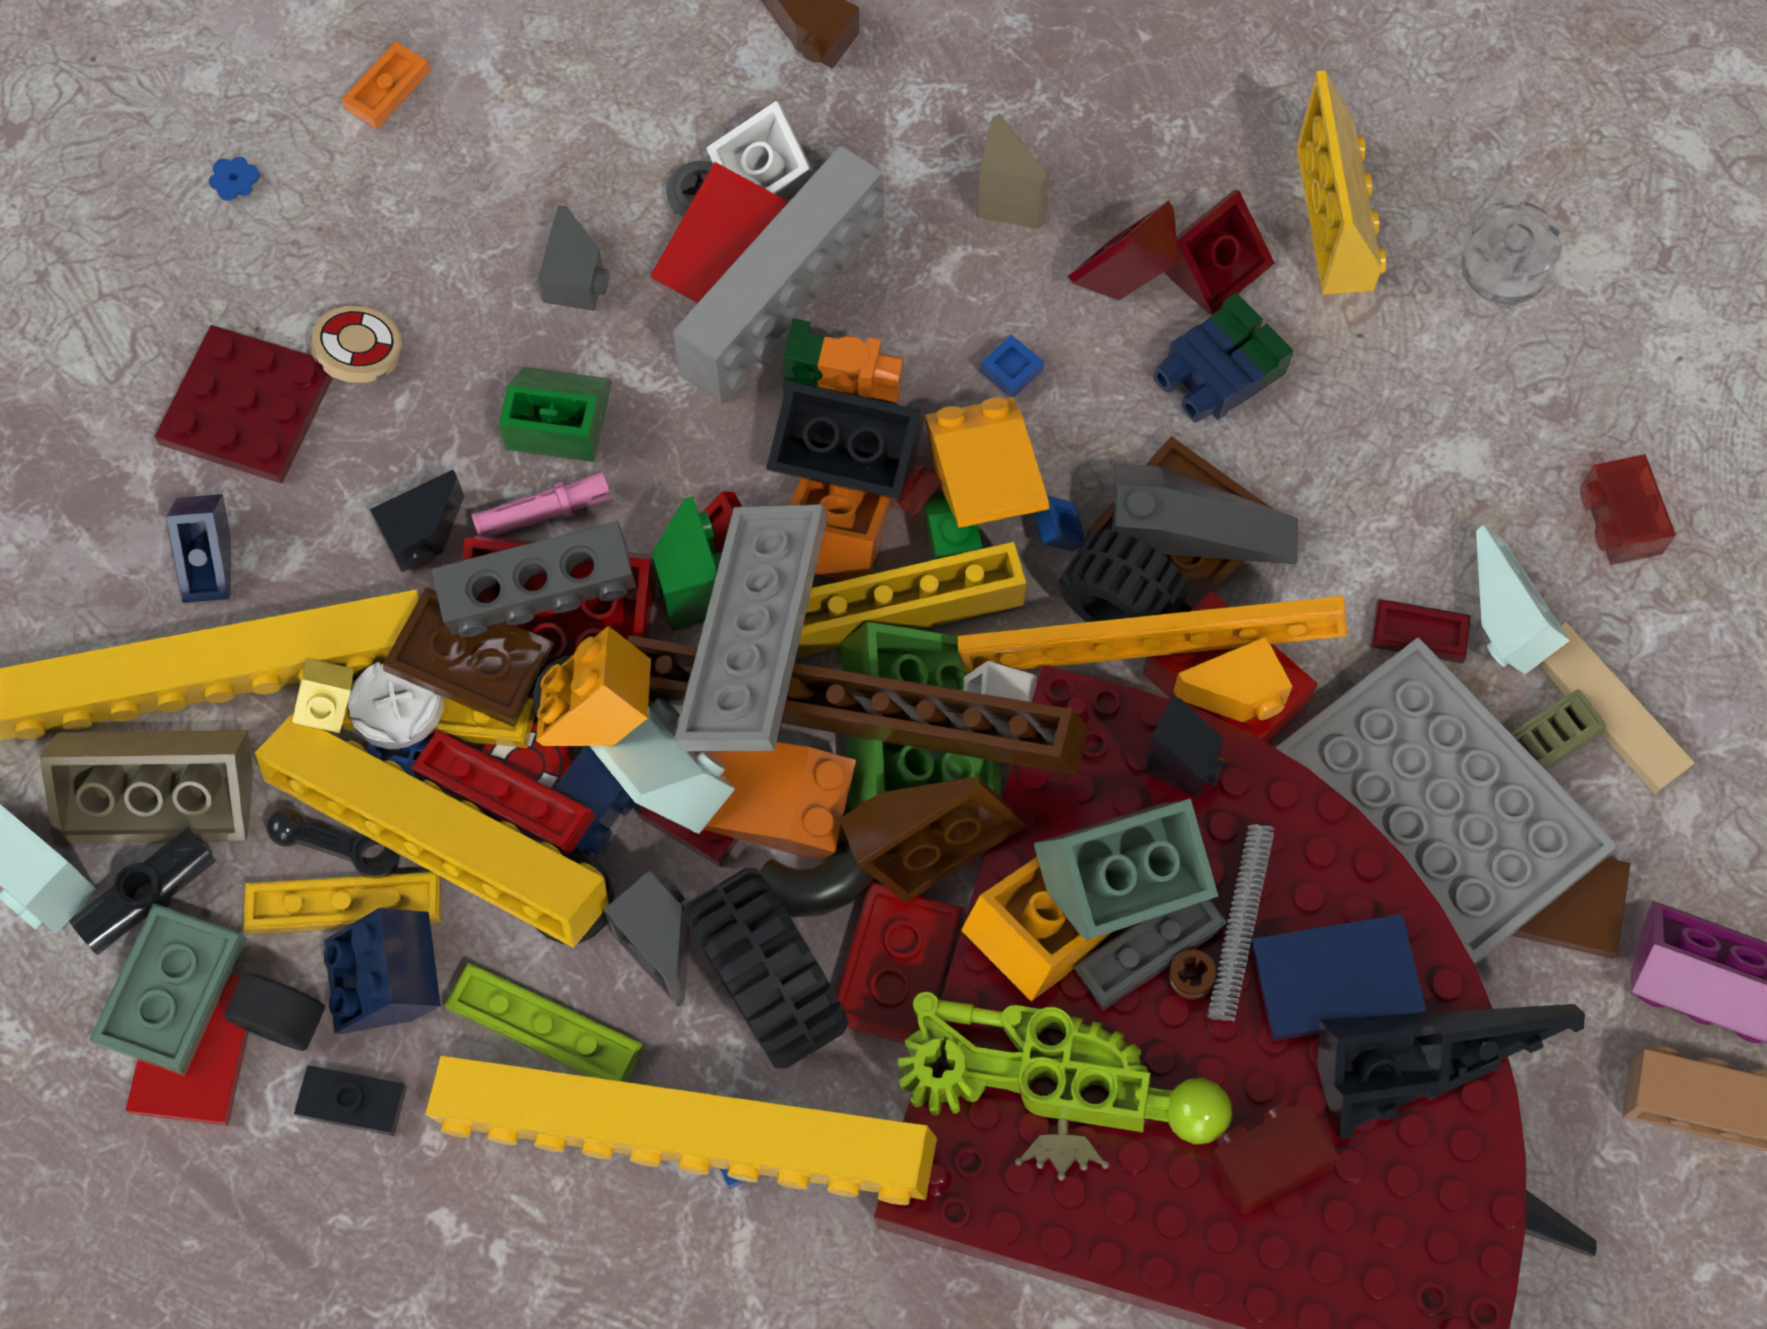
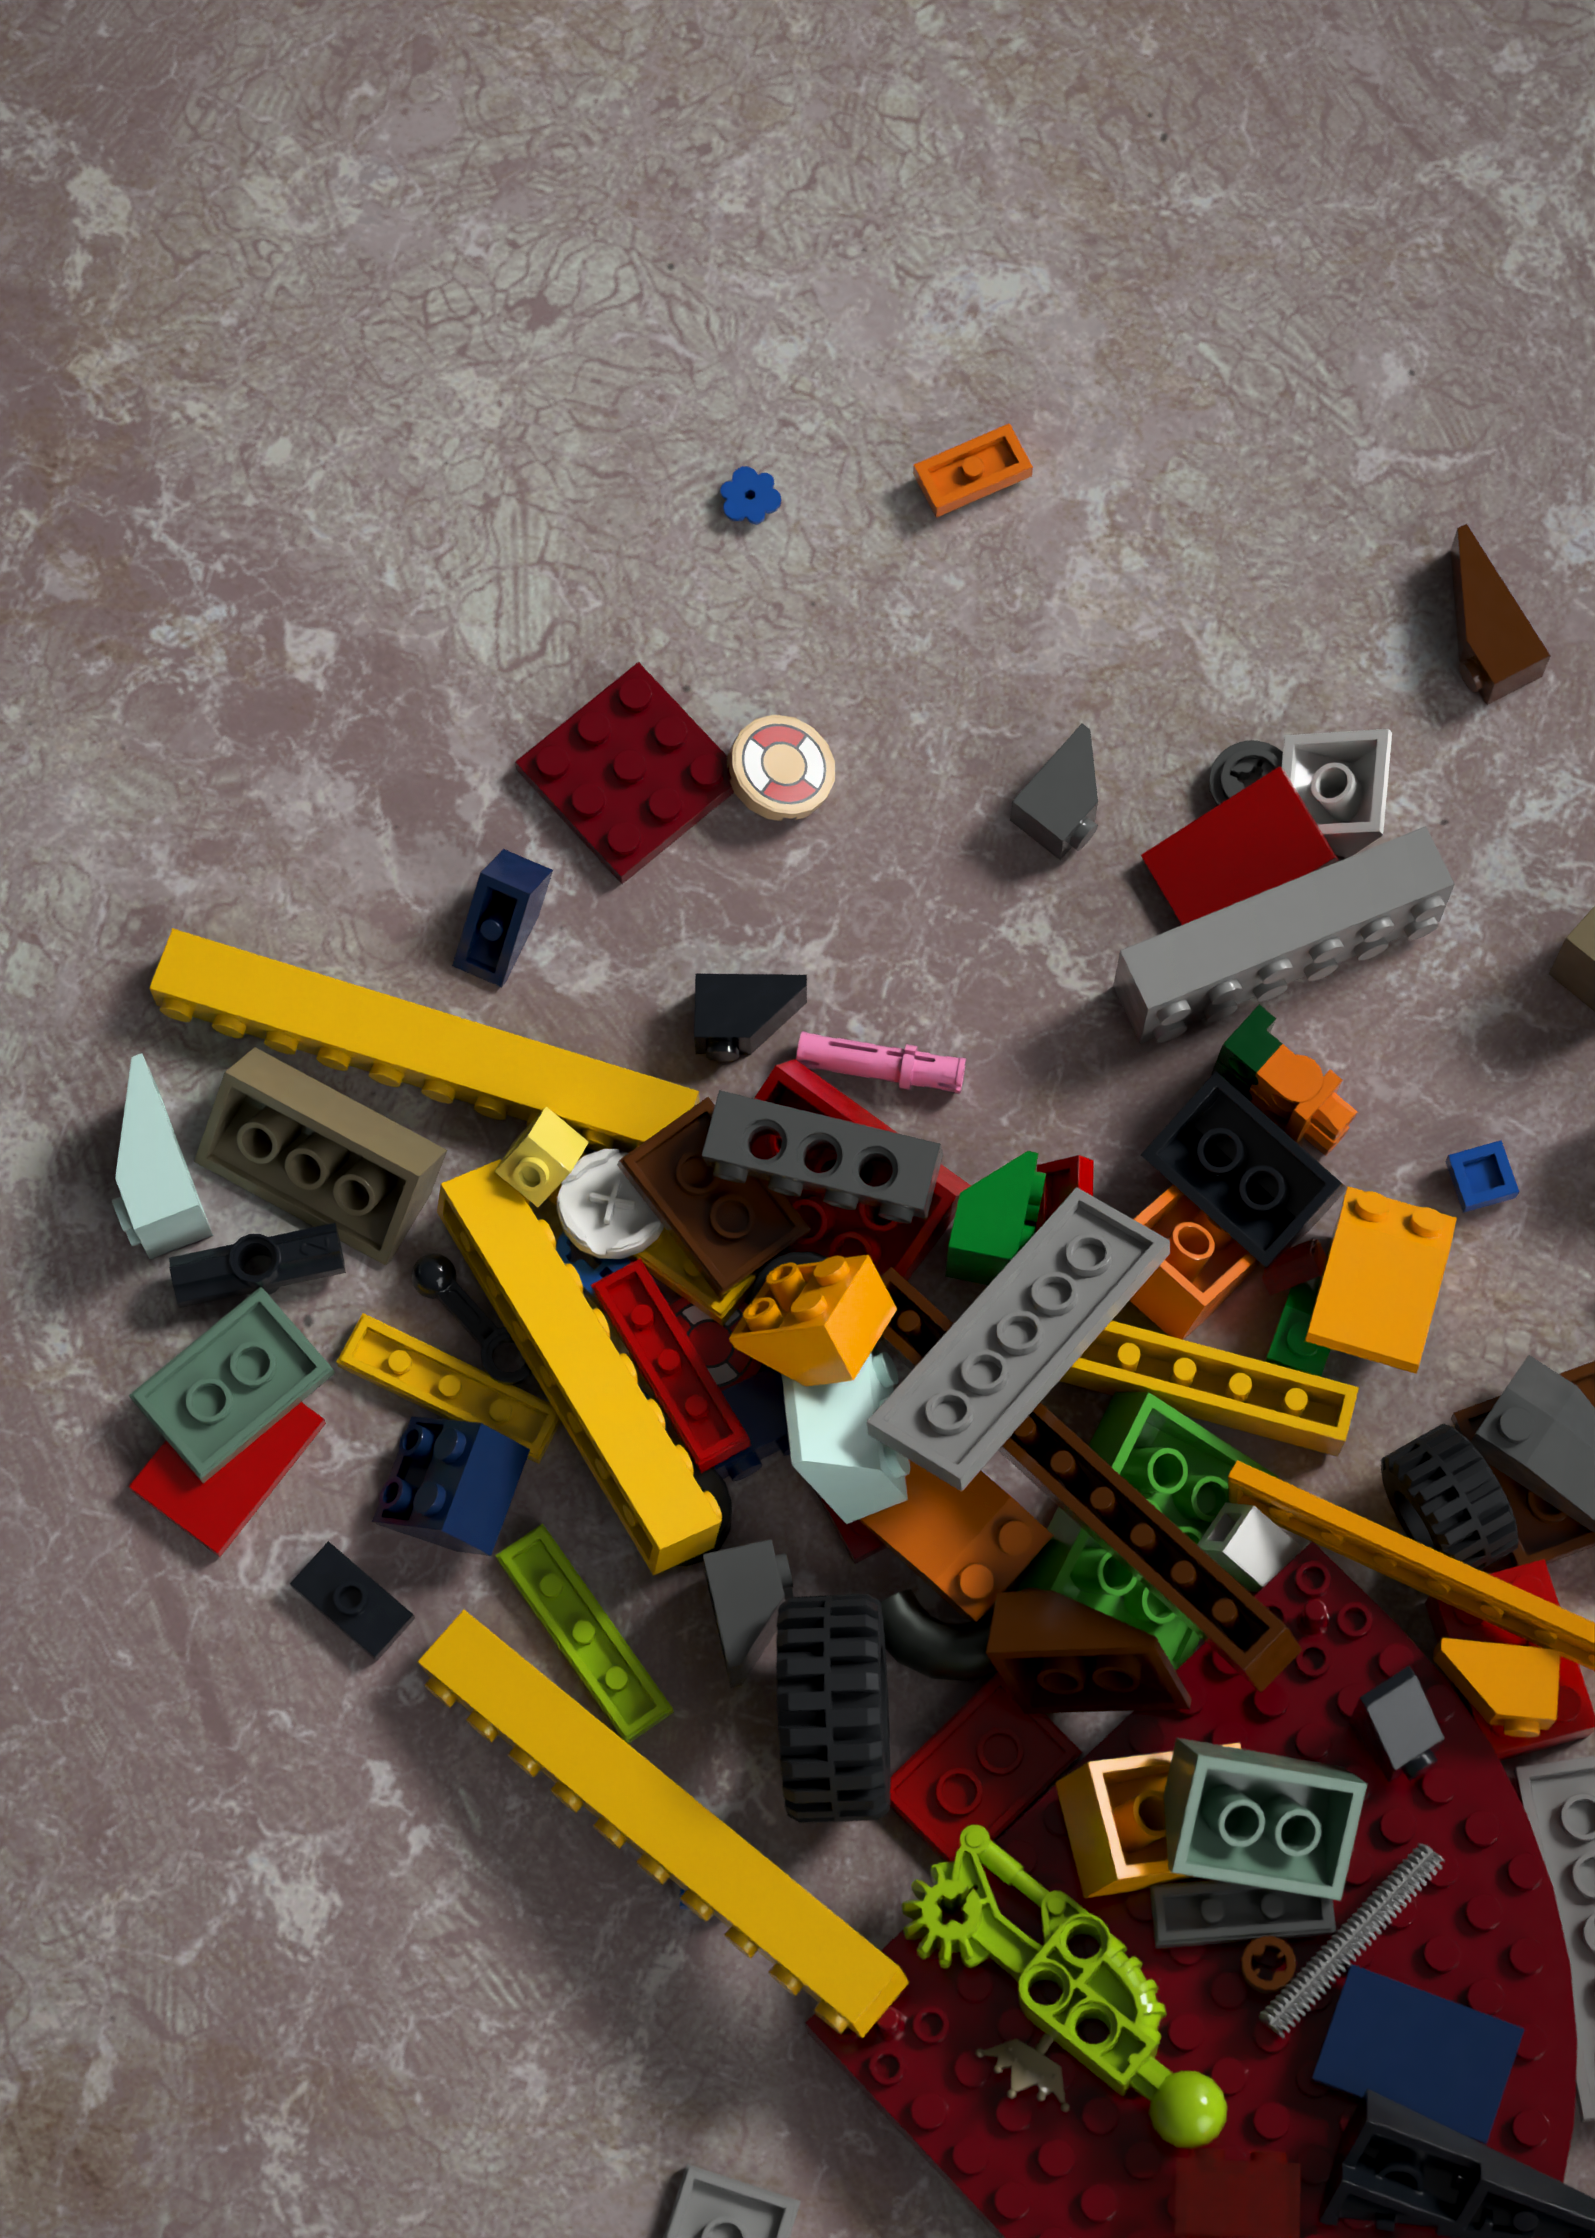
camera: 30 degrees right, 5 degrees up
(274, 1011) = (323, 1469): black tyre -> none
(554, 413) = (952, 962): green slope -> none
(1060, 525) = (1429, 1391): blue plate -> none

